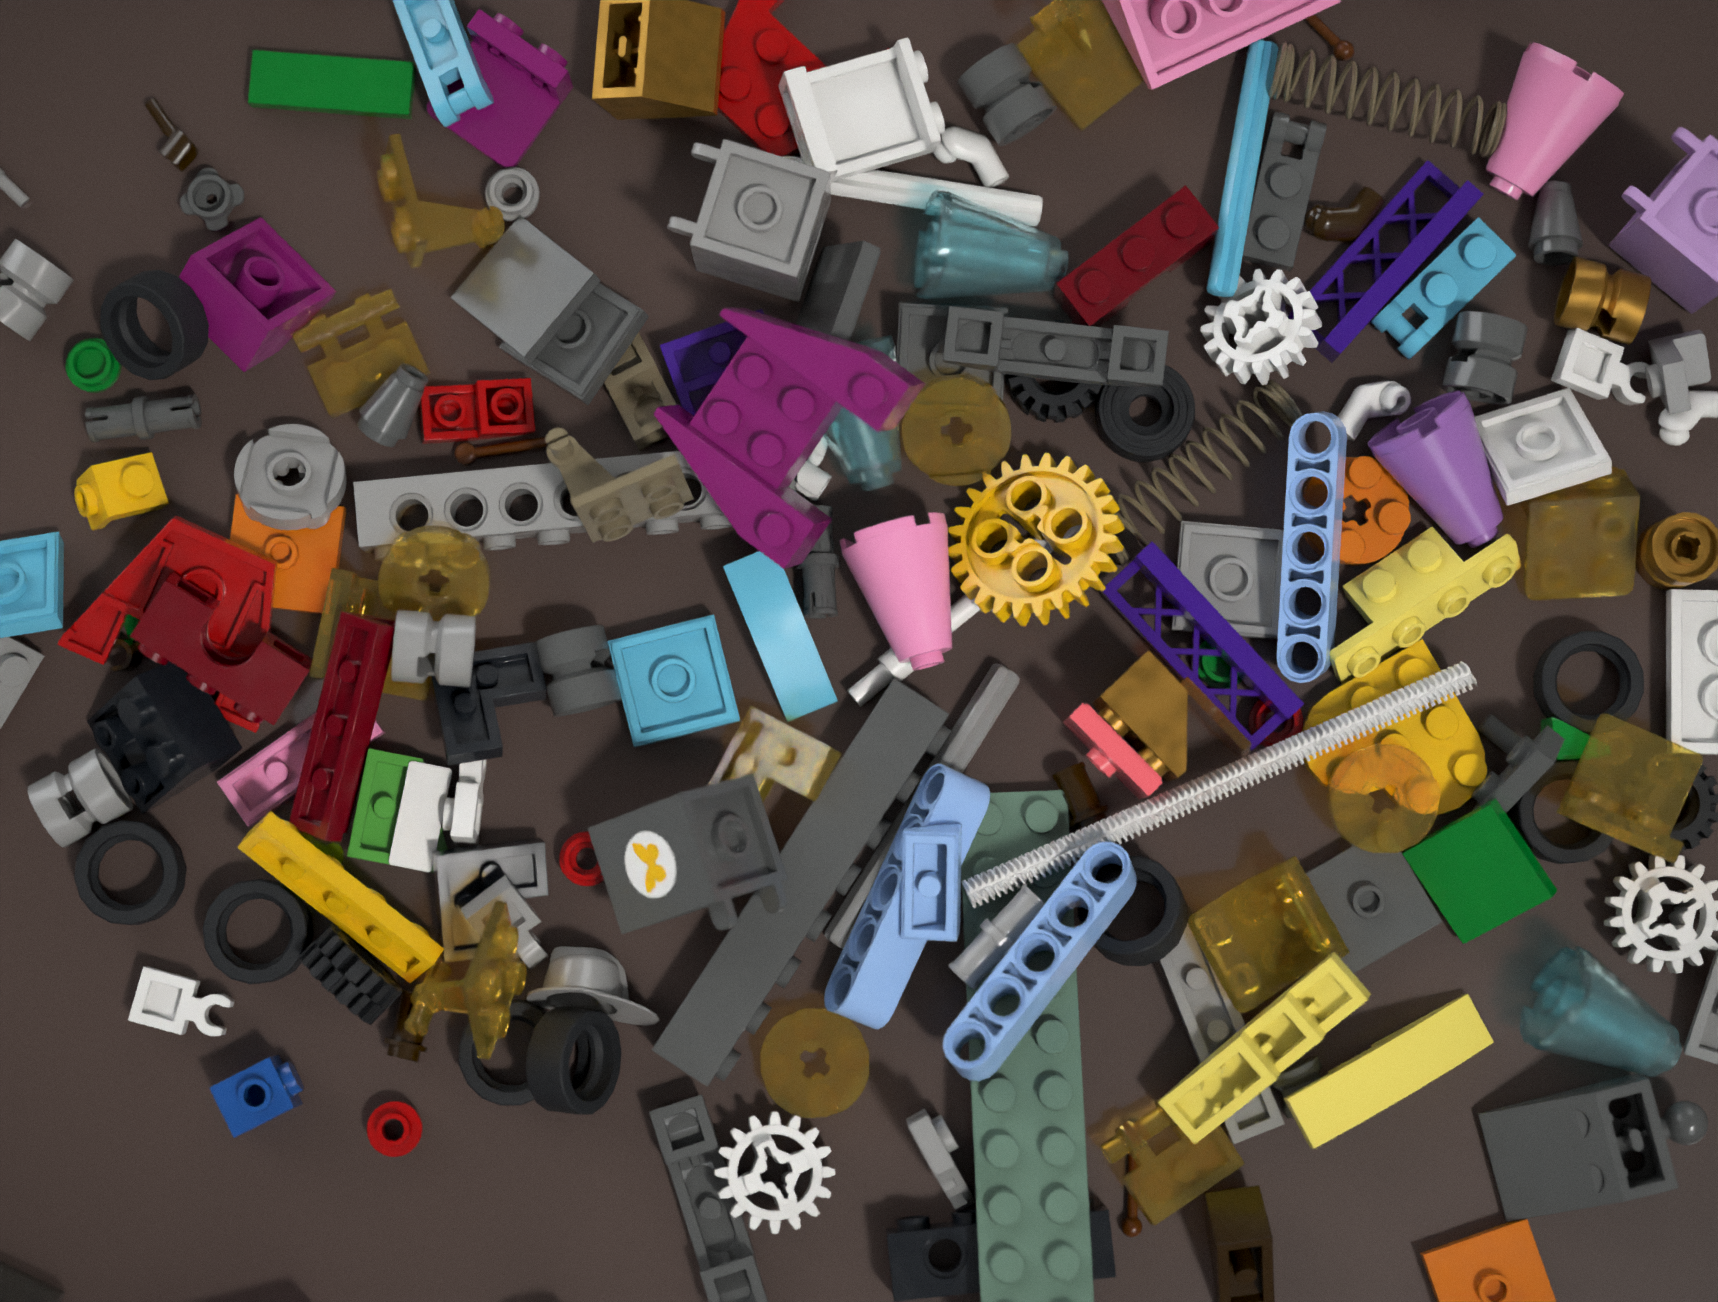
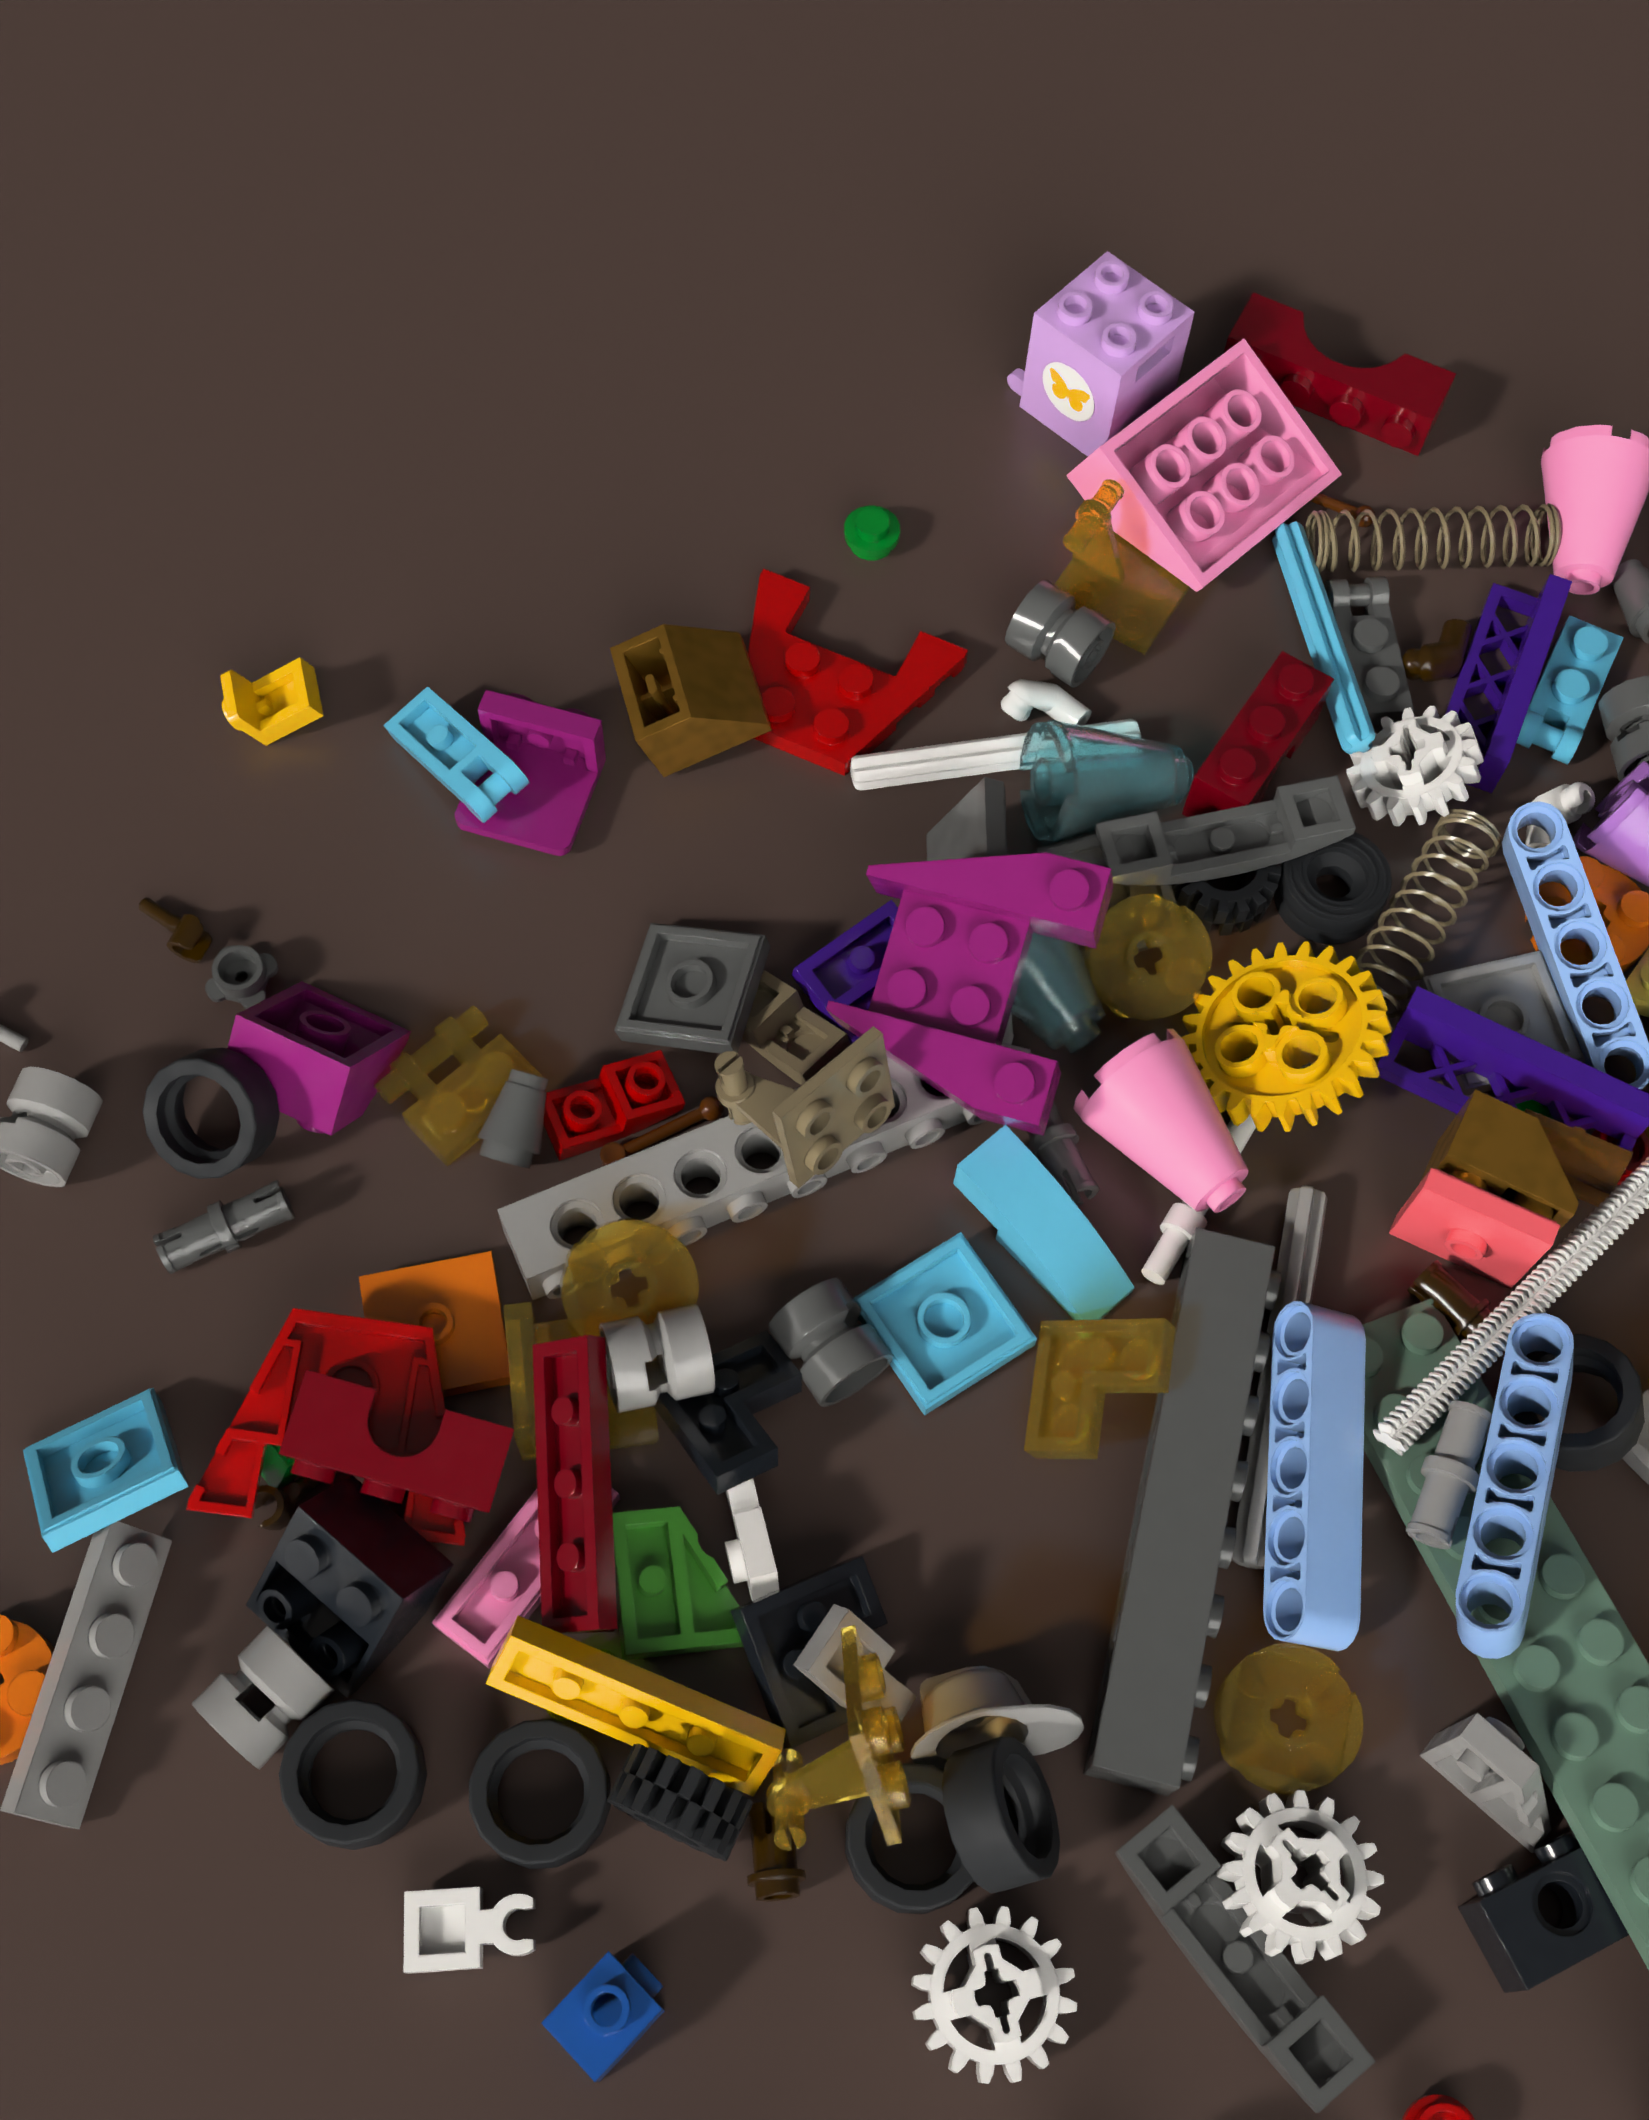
camera: 20 degrees left, 20 degrees down
(92, 366) = (148, 1189): green plate -> none
(119, 490) = (215, 1315): yellow bracket -> none
(294, 506) = (424, 1264): light grey plate -> none
(332, 84) = (342, 829): green tile -> none
(412, 1128) = (824, 1998): red plate -> none
(420, 816) = (699, 1577): white sticker -> none
(429, 226) = (486, 921): clear yellow plate -> none
(503, 1172) = (1025, 1985): none -> white gear
(509, 178) = (574, 861): light grey plate -> none
(525, 289) = (624, 959): tile -> none
(569, 863) = (922, 1543): red plate -> none
(691, 856) = (1051, 1499): dark grey container -> none
(758, 219) = (859, 793): light grey container -> none
(863, 111) = (922, 685): white panel -> none
(931, 882) = (1347, 1437): light blue slope -> none

